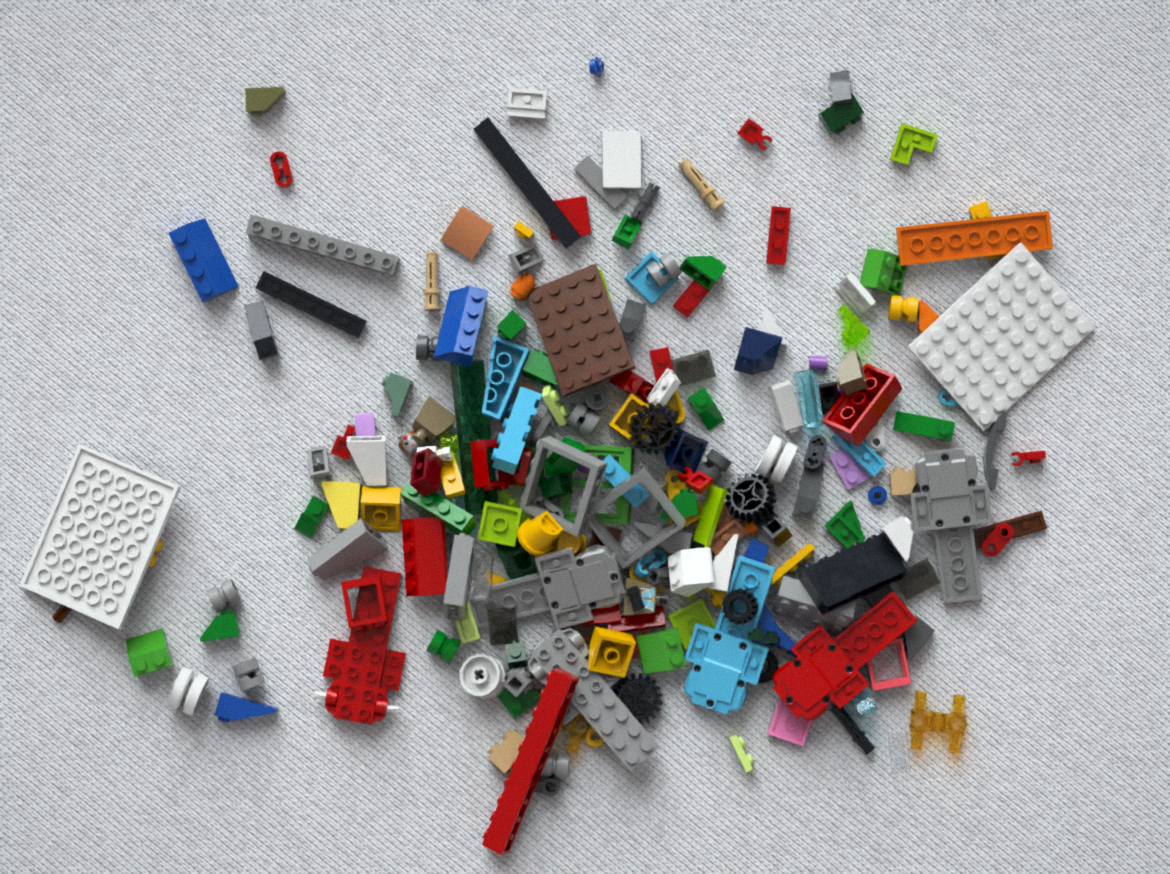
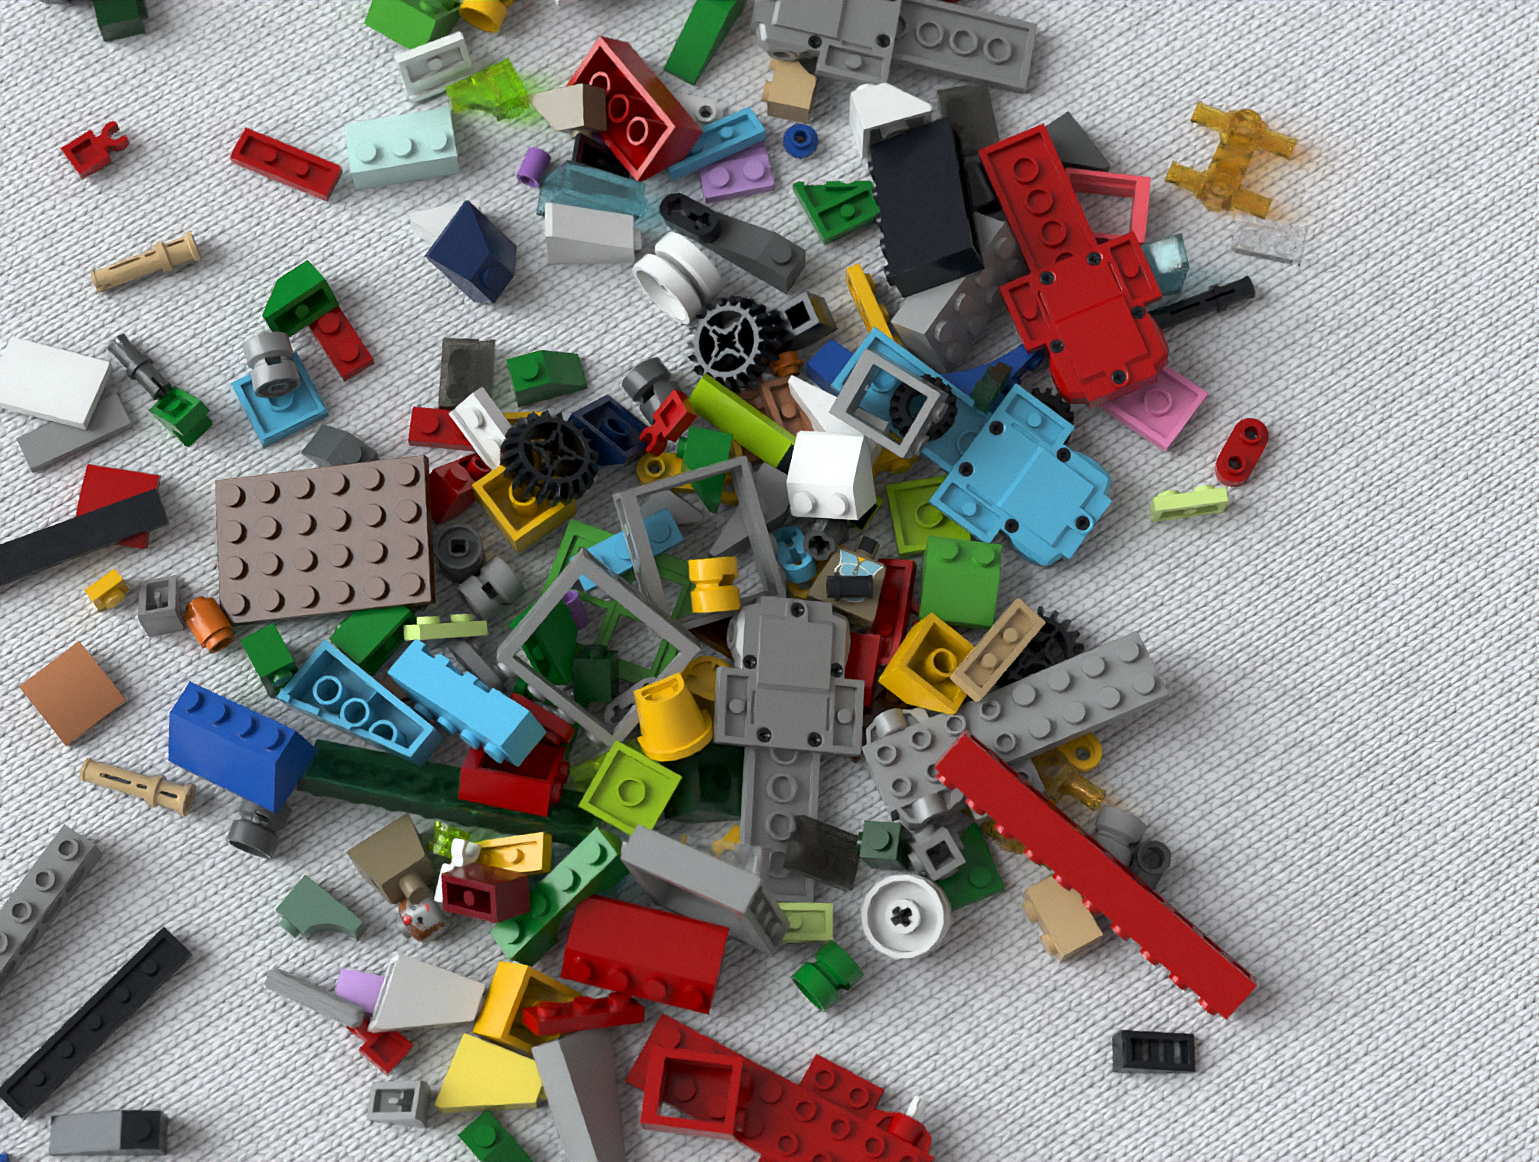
camera: 70 degrees left, 15 degrees down
(355, 405) = (314, 998): none -> light grey axle
(385, 537) = (583, 1014): none -> red plate
(452, 799) = (1122, 1052): none -> black slope
(612, 532) = (714, 584): none -> yellow wheel
(627, 681) = (997, 650): none -> tan plate
(746, 595) = (858, 385): none -> light grey window
(779, 771) = (1243, 451): none -> red plate
(808, 291) = (402, 148): none -> light aqua slope

